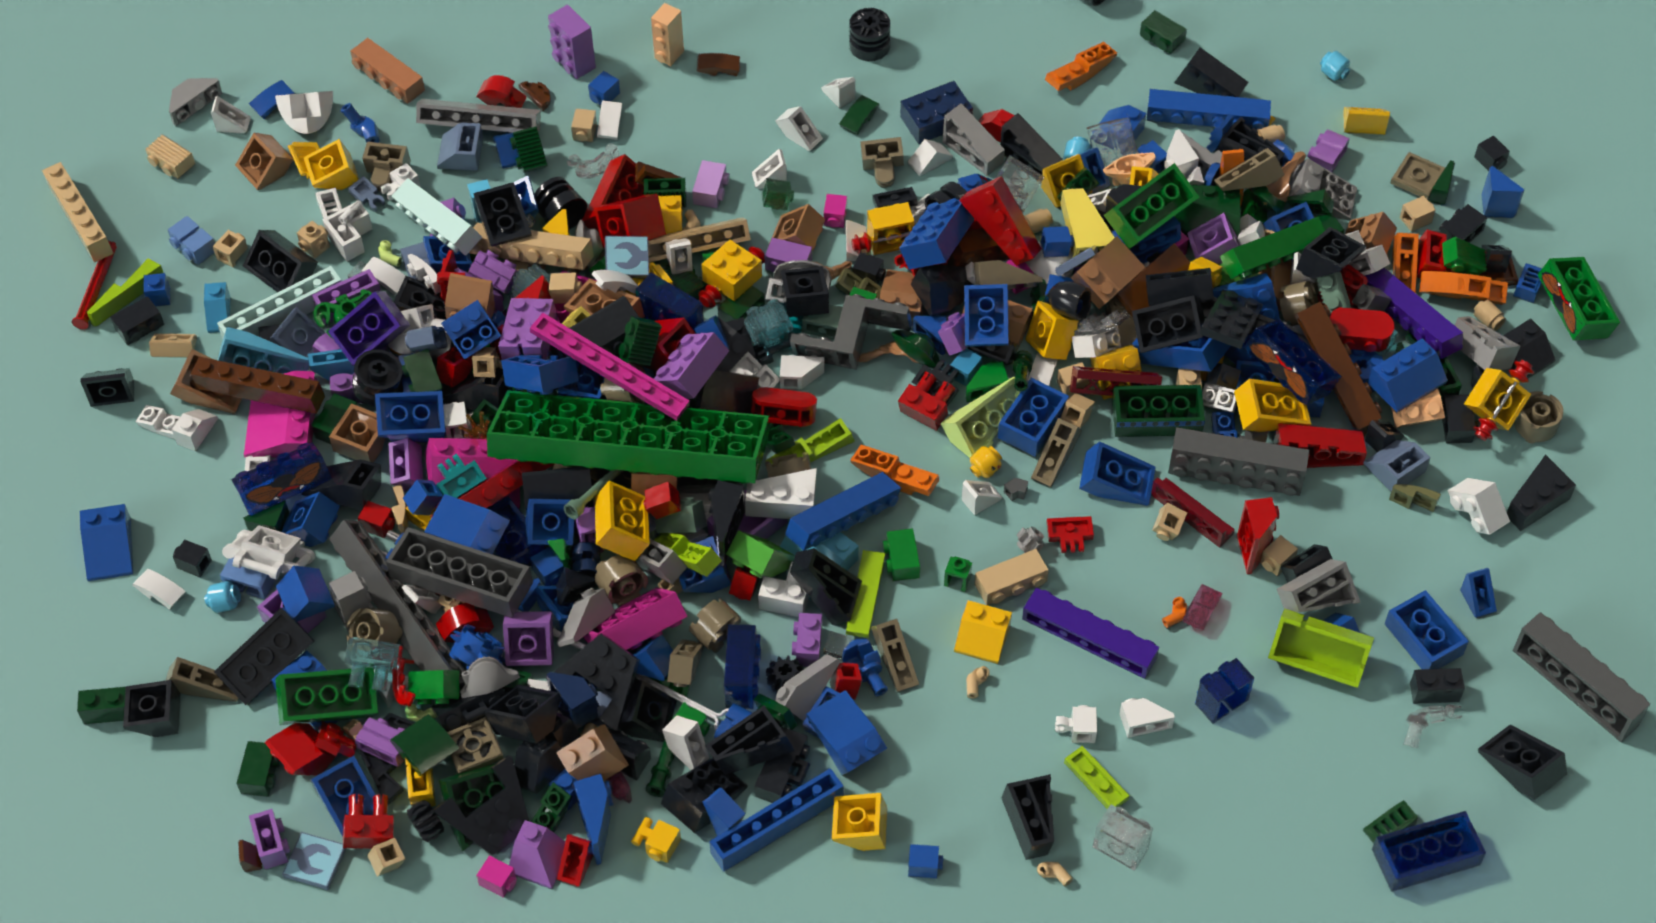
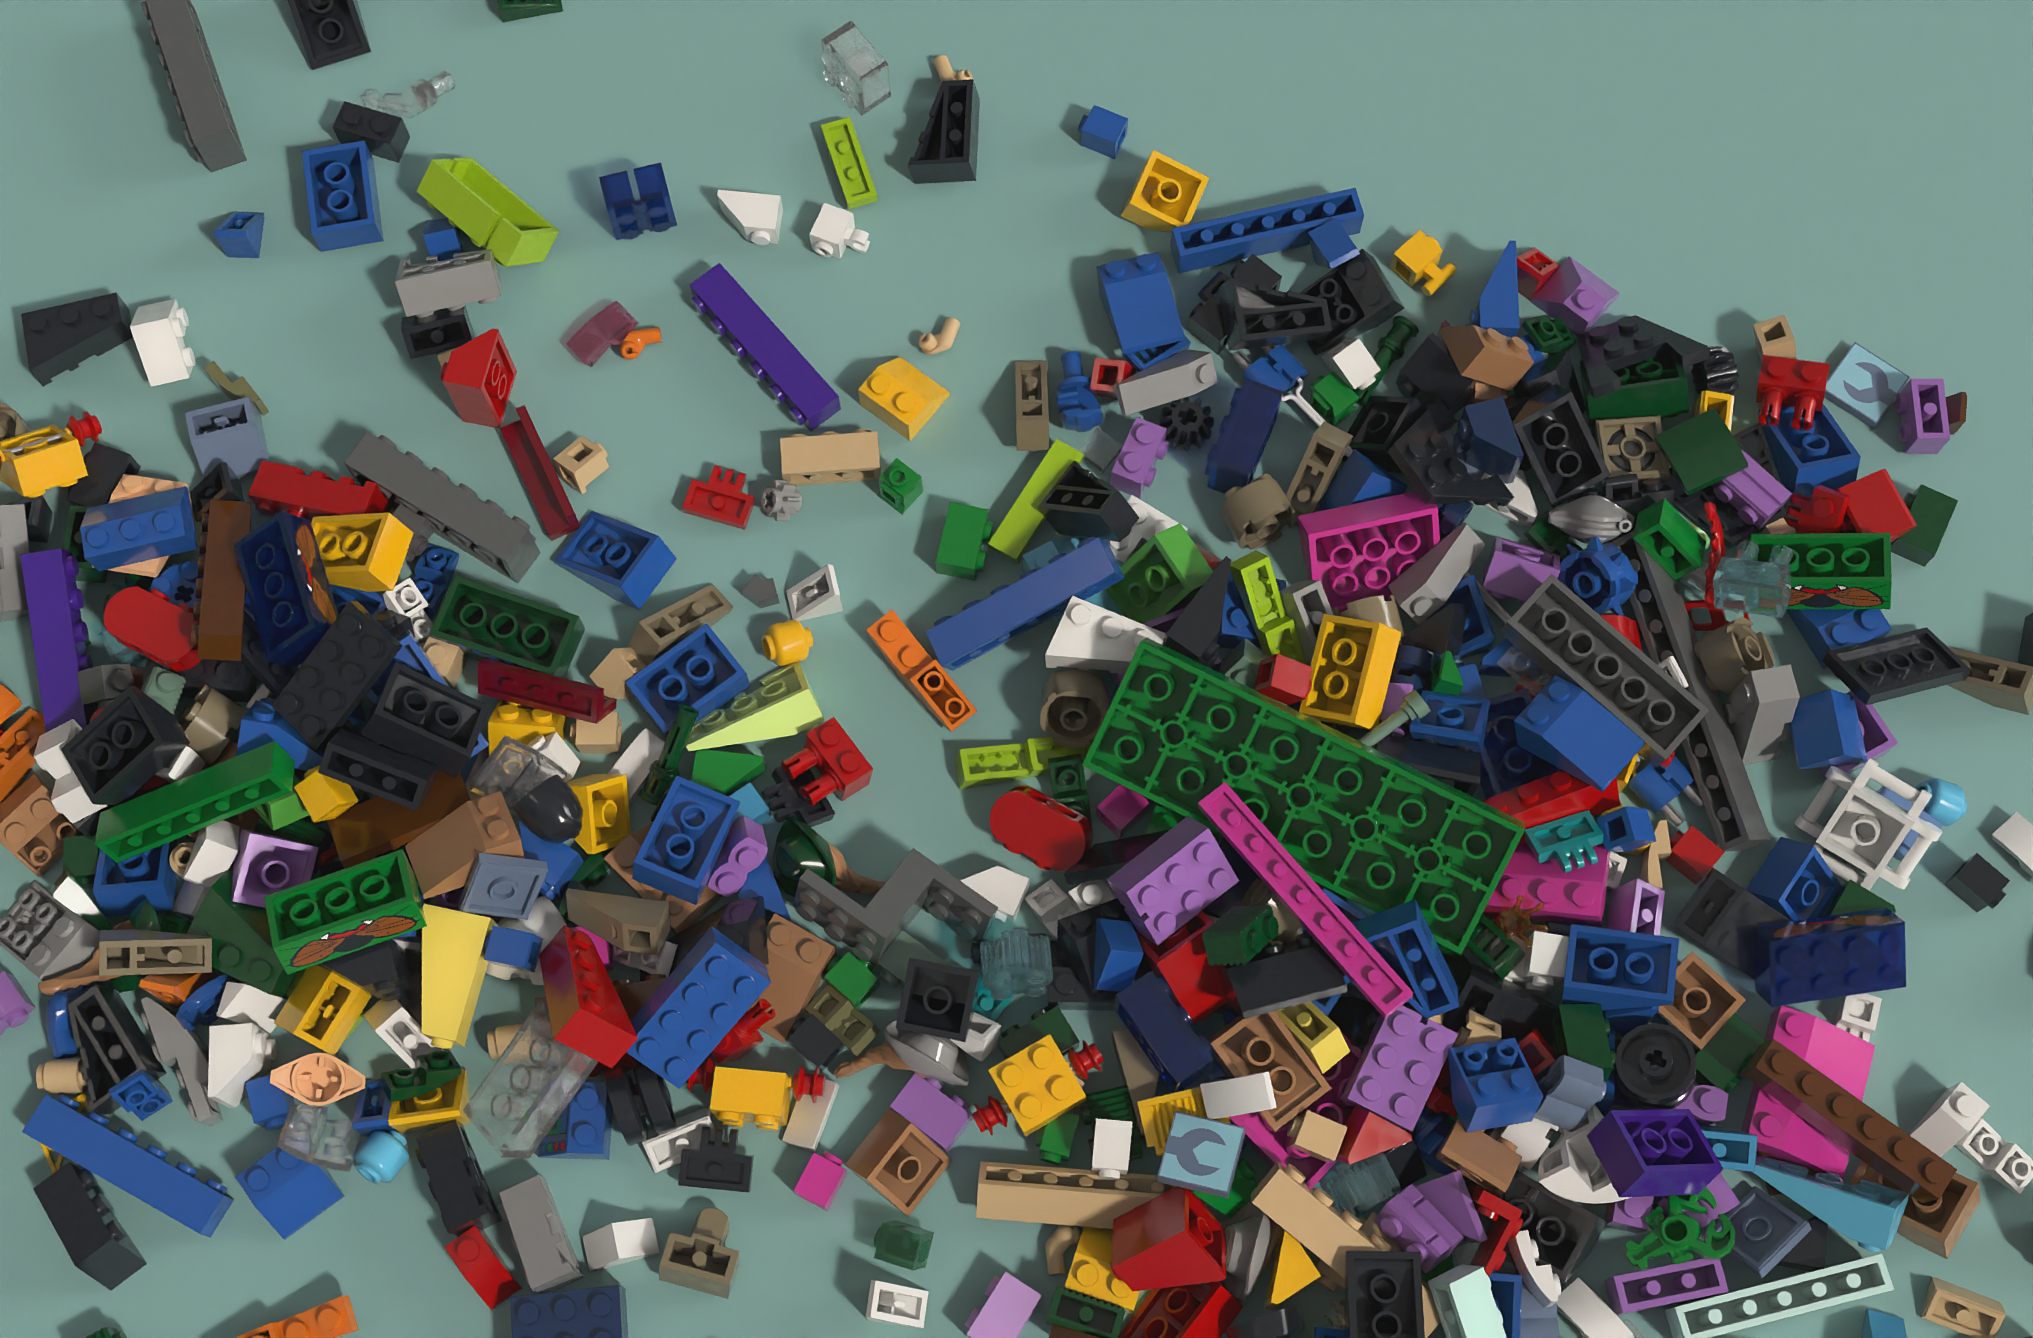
camera: 160 degrees left, 15 degrees up
(496, 876) = (1637, 281): dark pink brick -> none
(779, 712) = (1227, 377): dark green plate -> none

